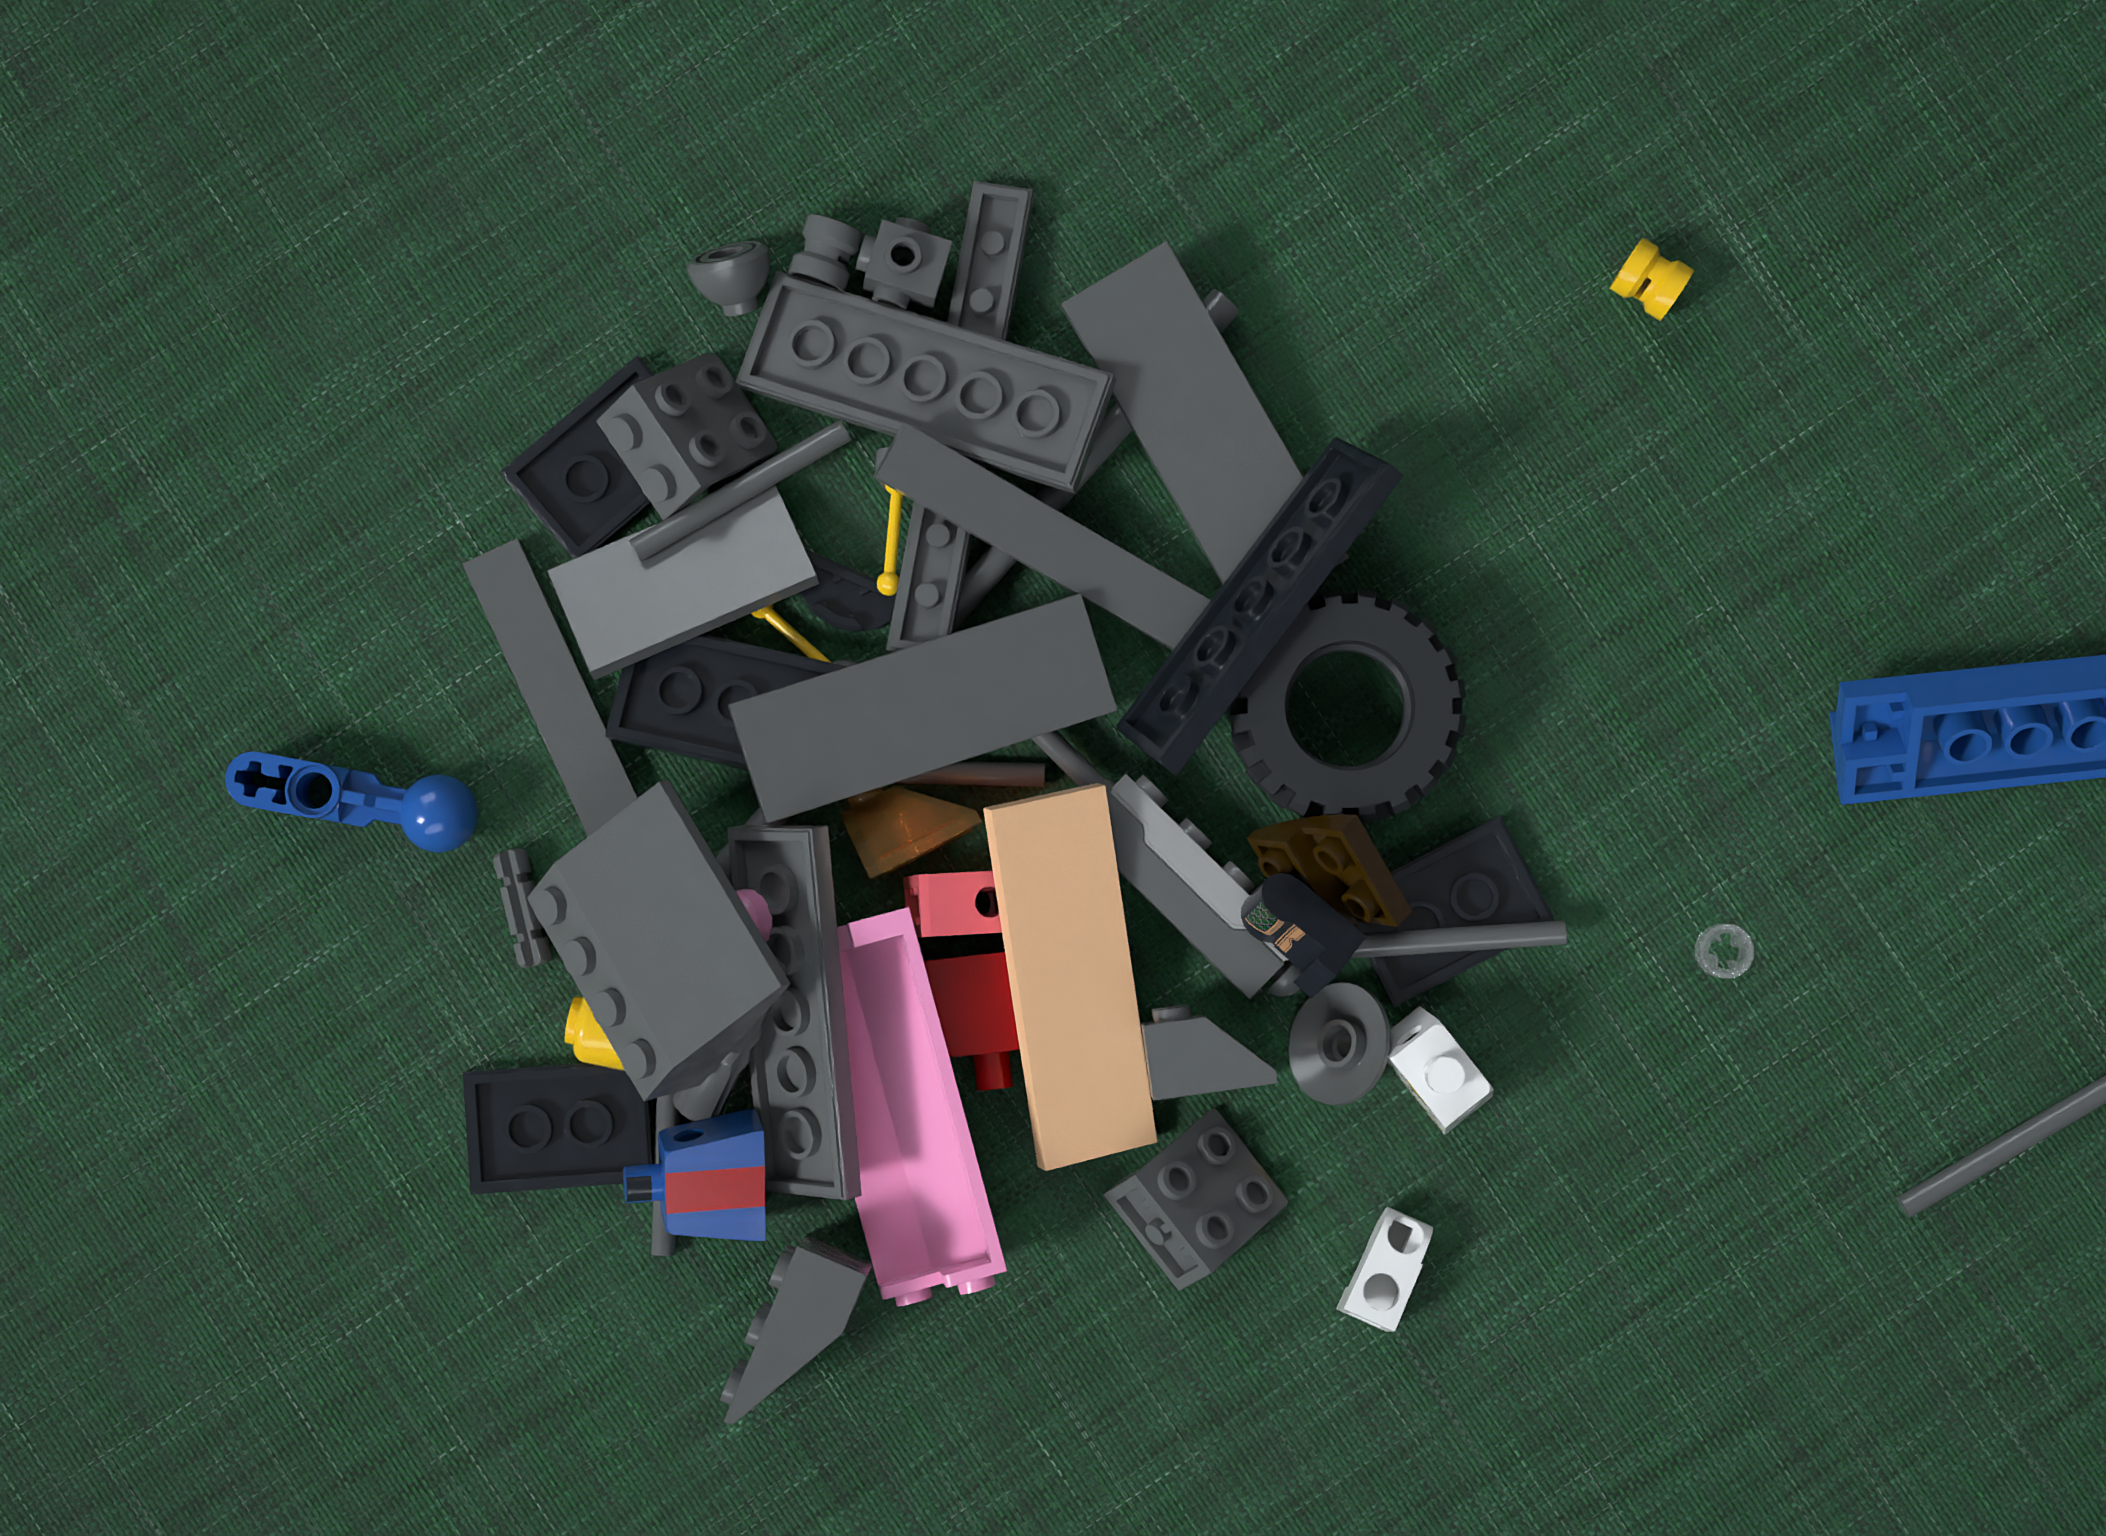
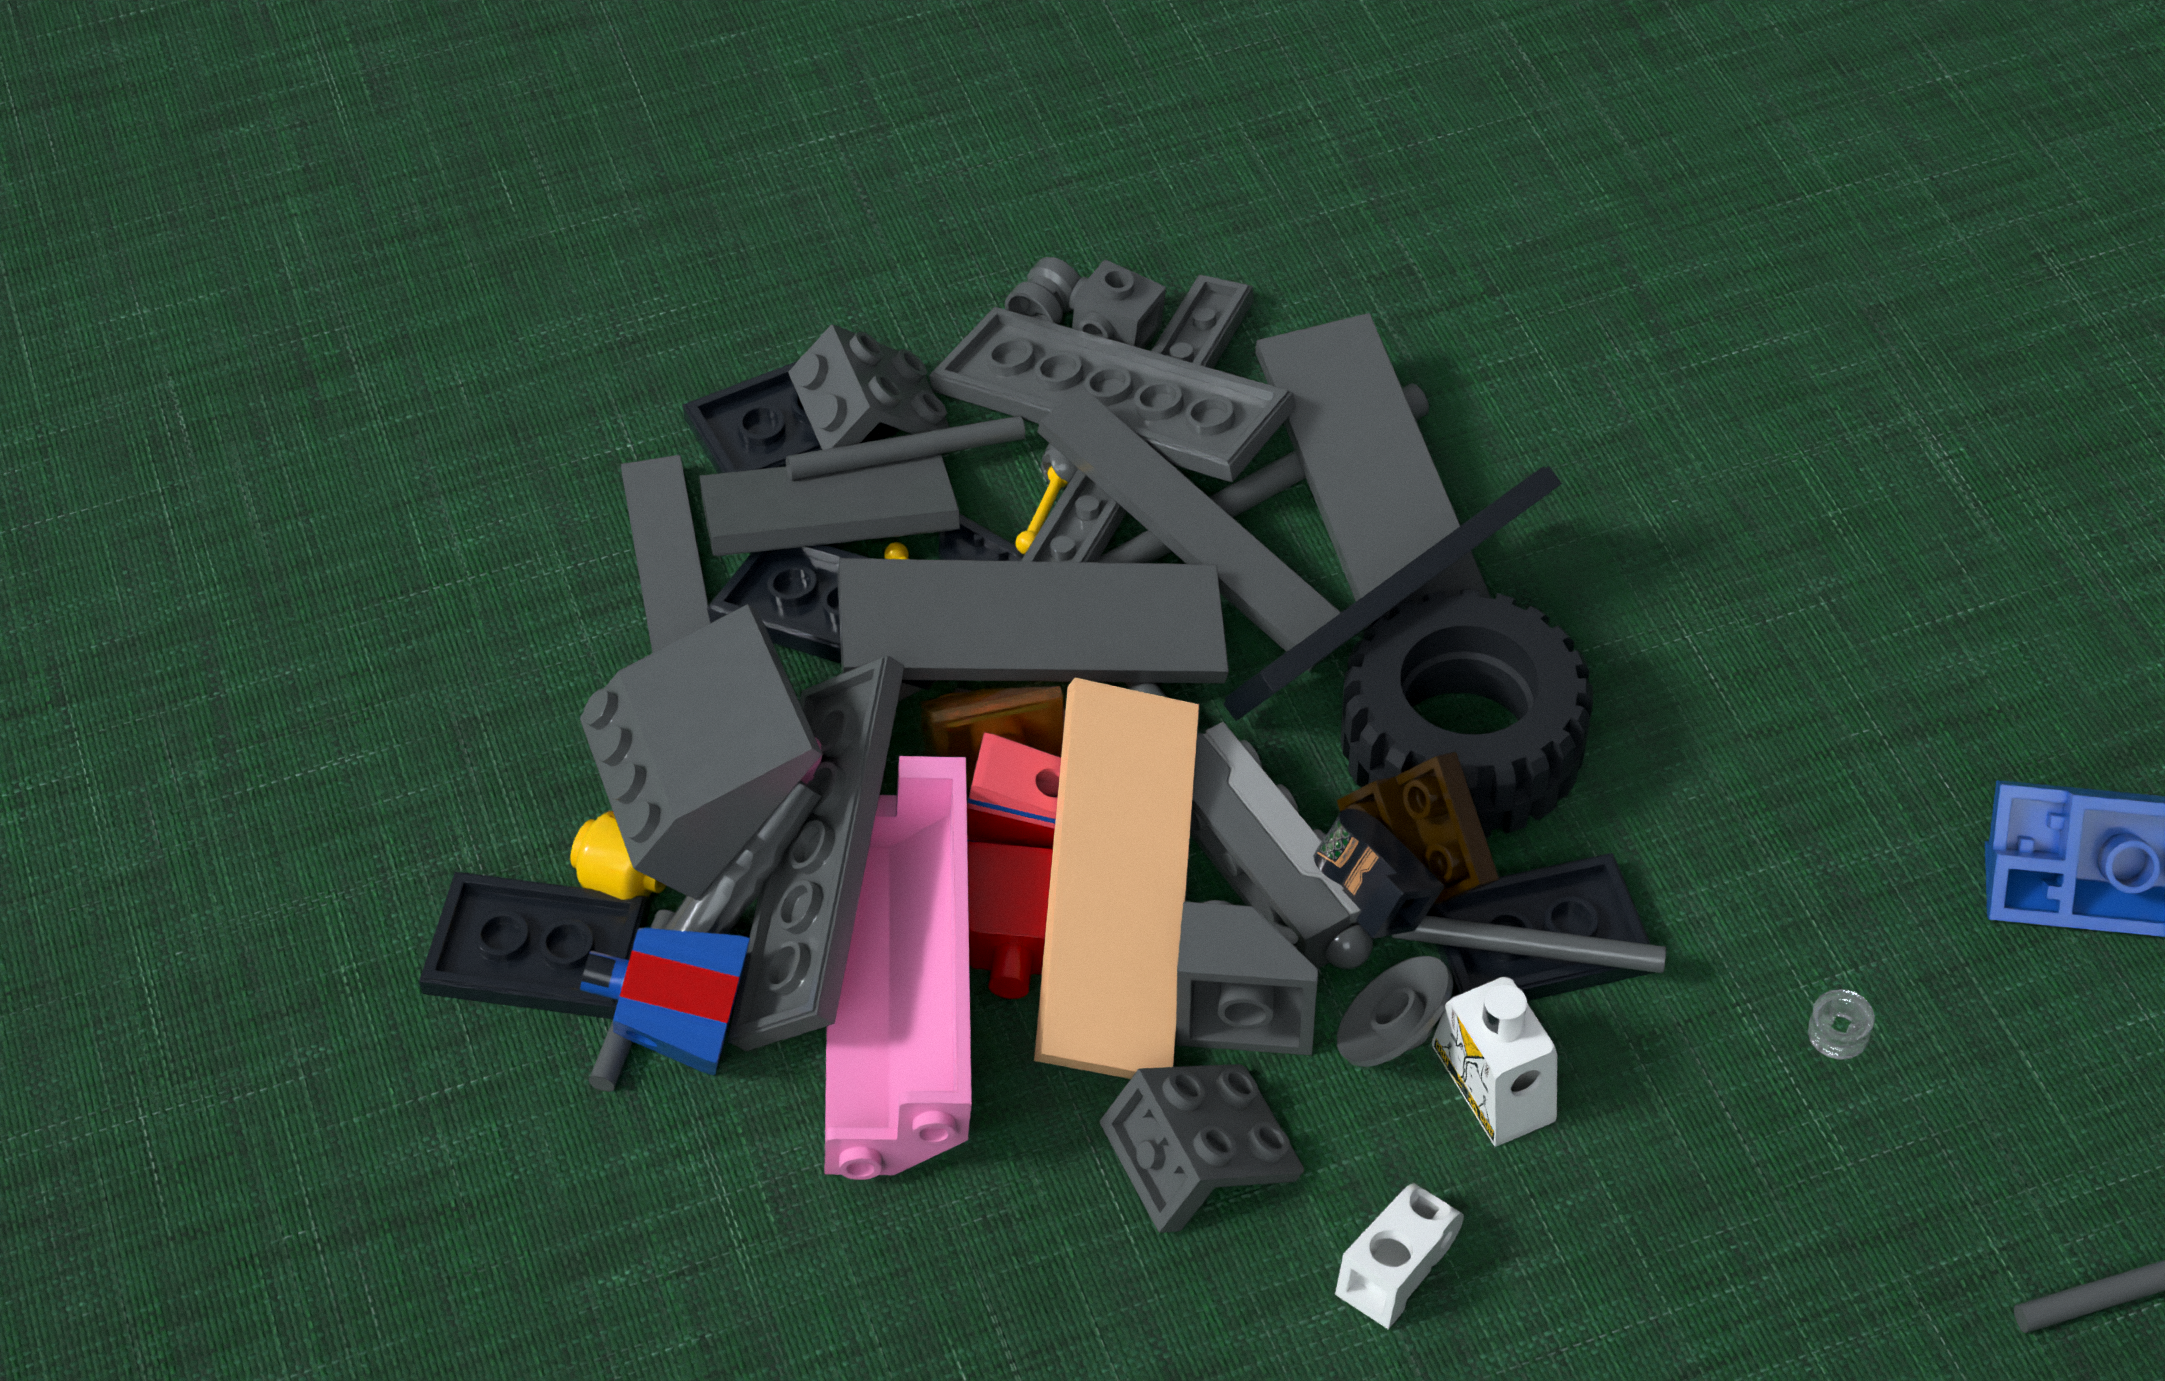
camera: 15 degrees right, 35 degrees down
(433, 812) = (408, 609): blue beam -> none
(513, 869) = (569, 750): dark grey axle -> none
(732, 275) = (952, 295): dark grey brick -> none
(809, 1312) = (722, 1147): dark grey slope -> none
(1651, 279) = (1842, 445): yellow wheel -> none

